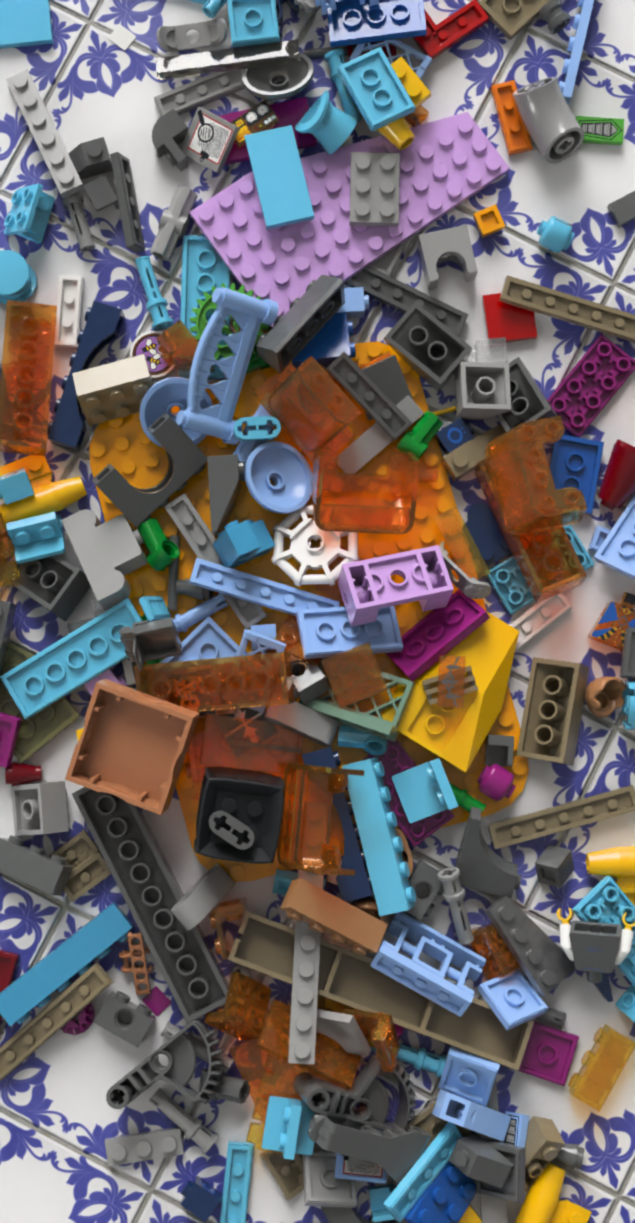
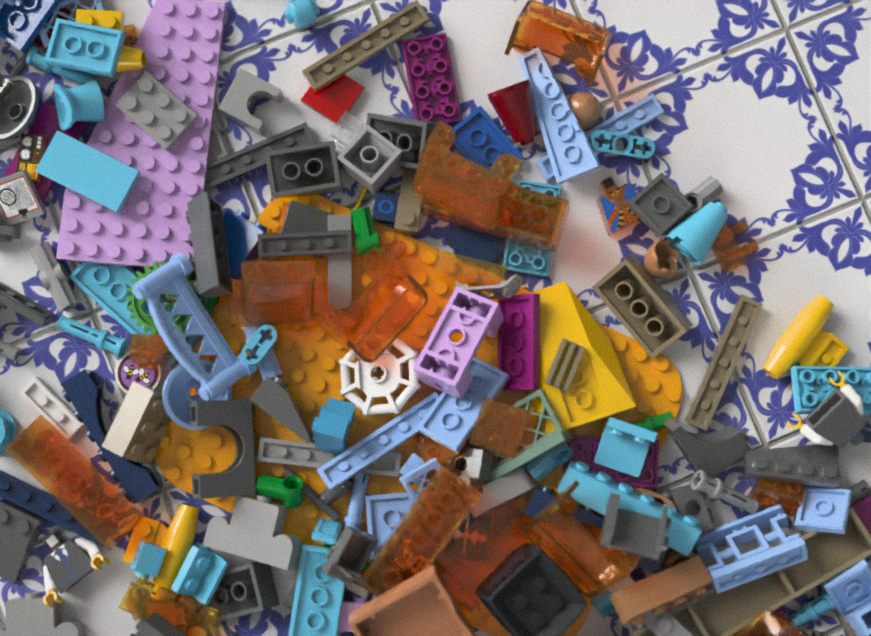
camera: 50 degrees left, 0 degrees up
(227, 835) = (542, 620): dark grey beam -> none
(286, 470) = (311, 349): light blue dish -> none
(355, 303) = (227, 195): light blue brick -> none
(362, 852) = (634, 531): none -> dark grey panel
(451, 681) = (563, 362): clear orange tile -> none
(489, 221) = (250, 49): light orange plate -> none
(496, 782) = (660, 390): magenta head -> none
(499, 750) = (638, 367): dark grey panel -> none
(539, 618) = (567, 258): tile -> none
(554, 866) = (752, 398): dark grey panel -> none

